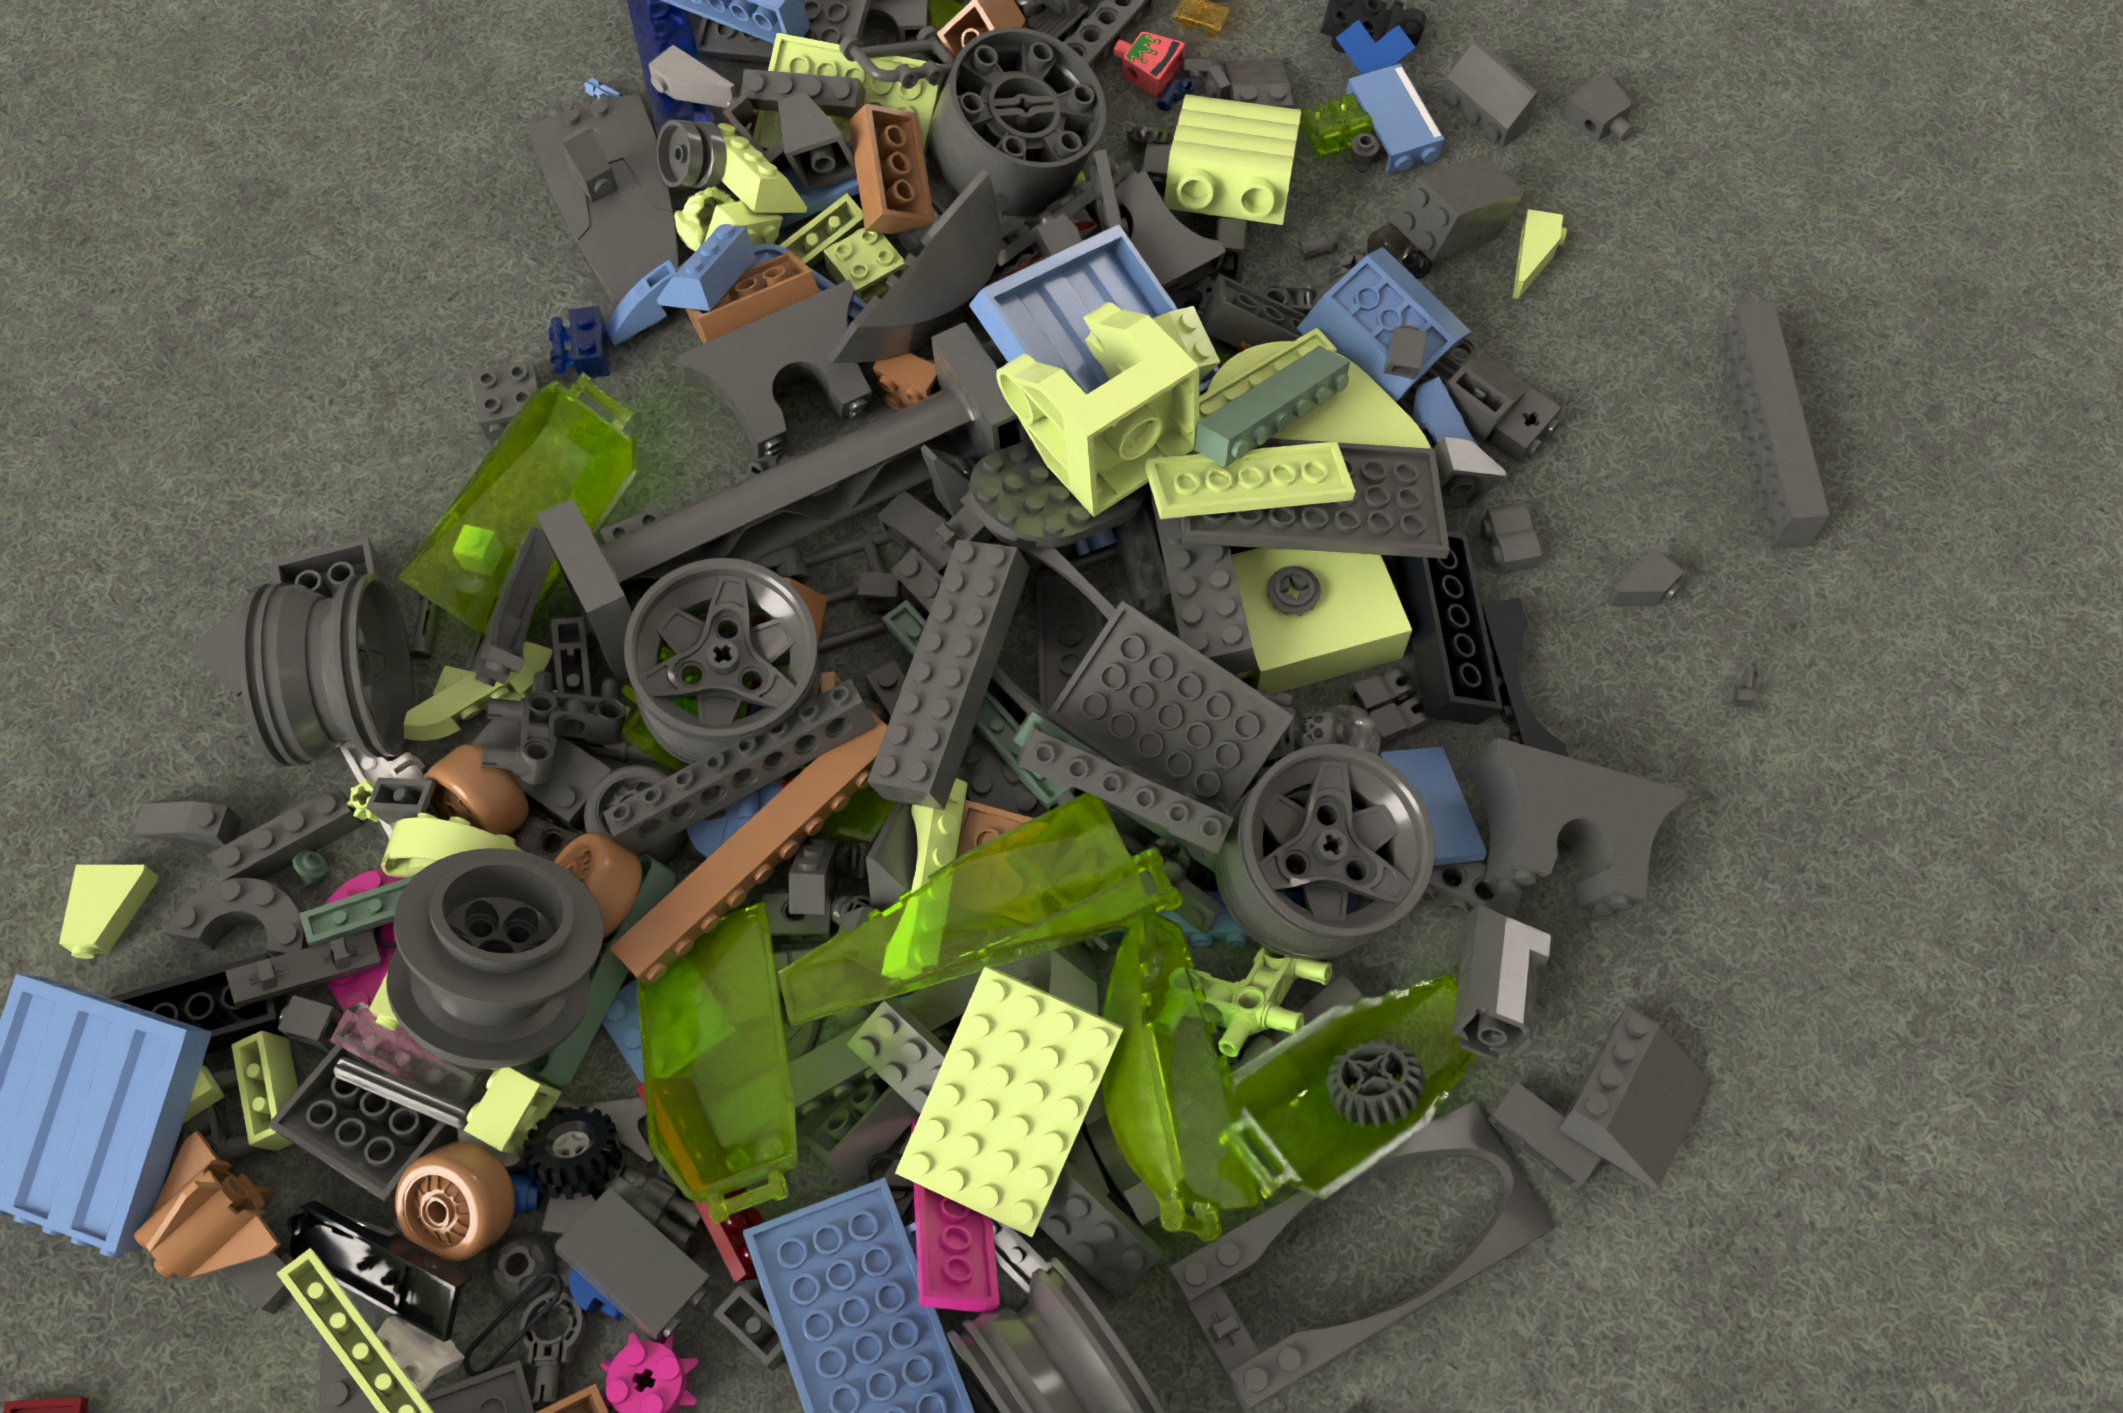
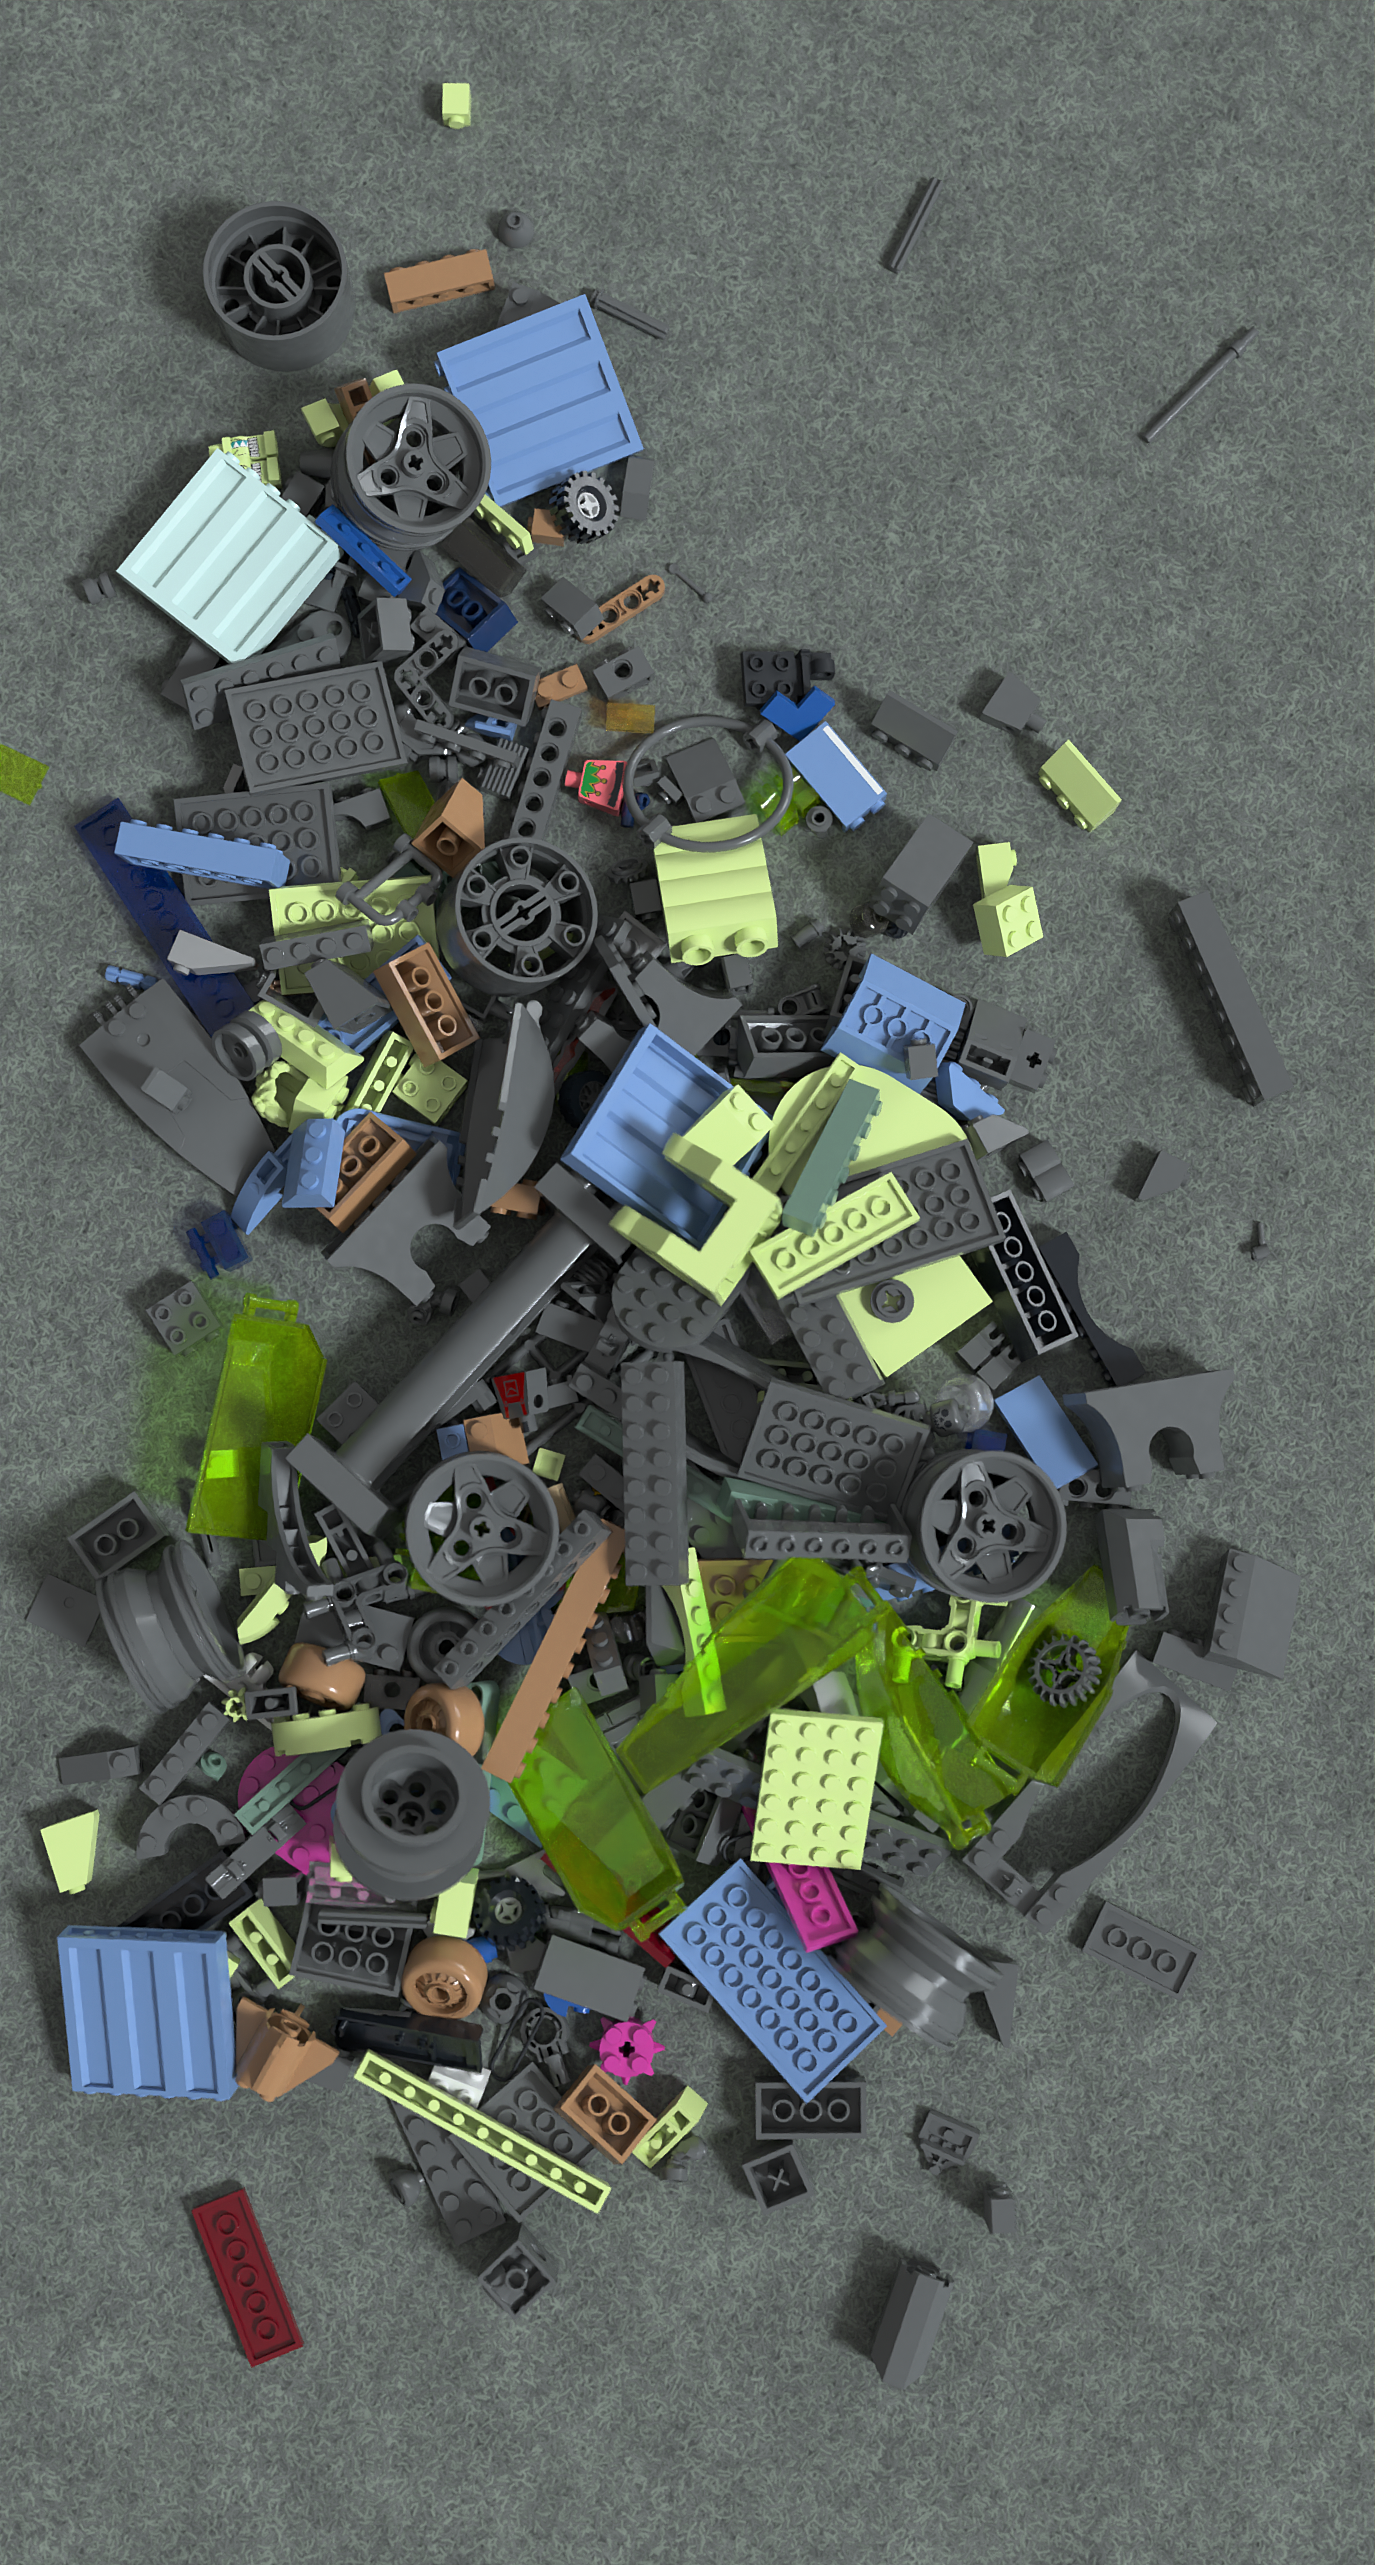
camera: 20 degrees left, 20 degrees up
(837, 572) = (522, 1396): none -> dark grey torso
(840, 662) = (548, 1464): none -> yellowish green tile
(1322, 64) = (658, 828): none -> dark grey piece
(1541, 277) = (1008, 920): none -> yellowish green brick
(1654, 188) = (1078, 787): none -> yellowish green slope

